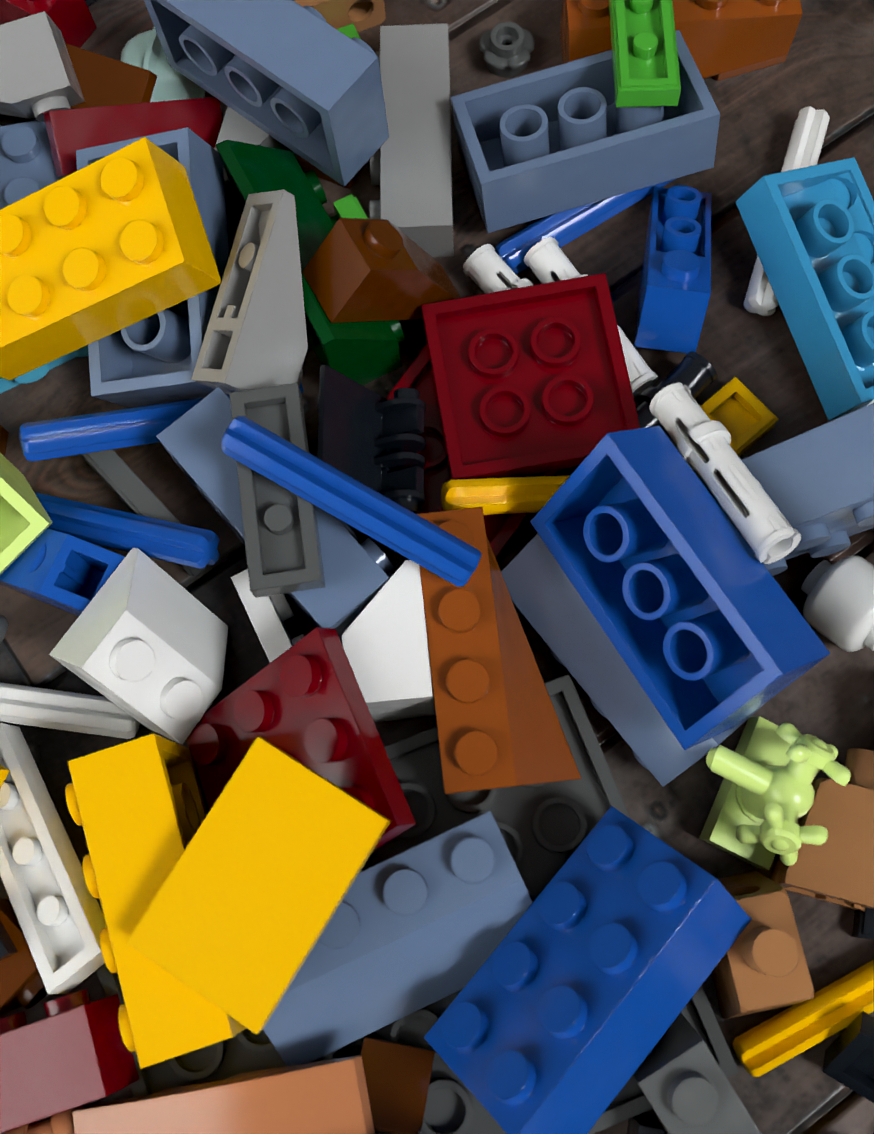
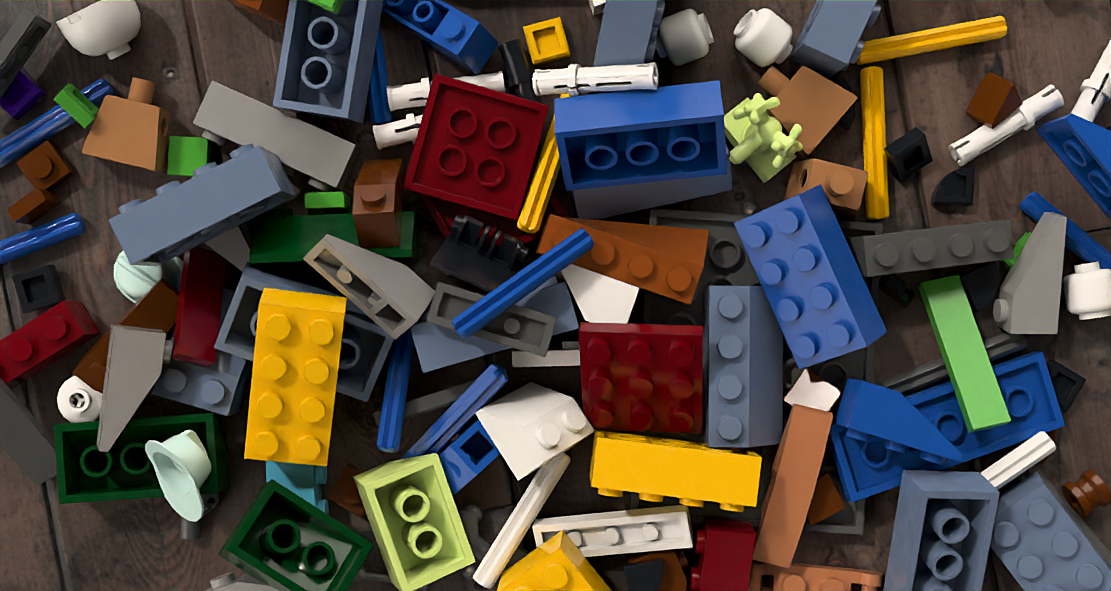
camera: 75 degrees left, 15 degrees up
(258, 884) = (698, 412): yellow tile -> none
(506, 49) = (242, 54): dark grey plate -> none

